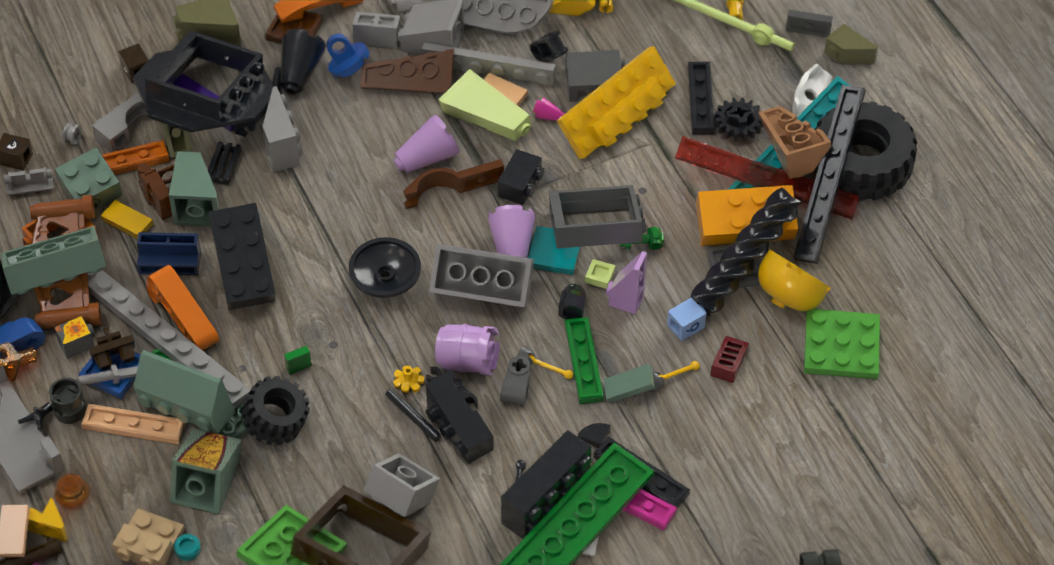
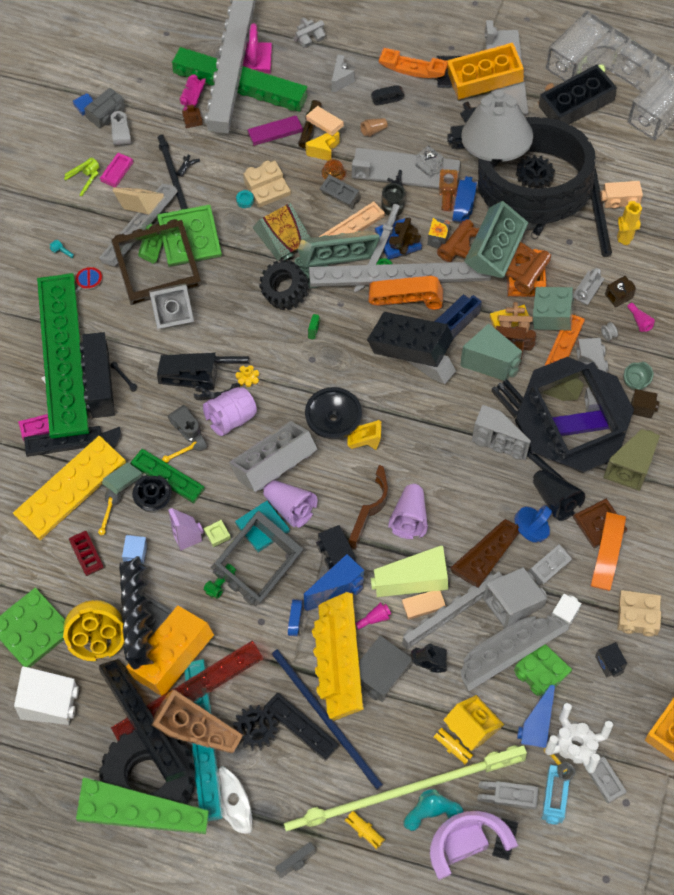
camera: 130 degrees right, 10 degrees up
(33, 117) = (643, 320): none -> dark pink cone
(100, 456) = (340, 191): none -> dark grey hinge
(107, 80) = (638, 375): none -> sand green hair
(130, 201) = (523, 321): none -> medium nougat hips
(378, 224) = (366, 434): none -> yellow slope
(562, 144) = (341, 578): none -> blue slope
(572, 302) = (212, 501): black rock -> none
(615, 161) = (295, 617): none -> blue beam
(621, 341) = (151, 493): none -> black cone
(674, 90) = (329, 722): none -> dark blue piece
(683, 422) = (68, 488): none -> yellow plate
(850, 47) = (247, 867): olive slope -> none
(888, 272) = (45, 697): none -> white slope
(918, 133) = (124, 807): none -> bright green wing

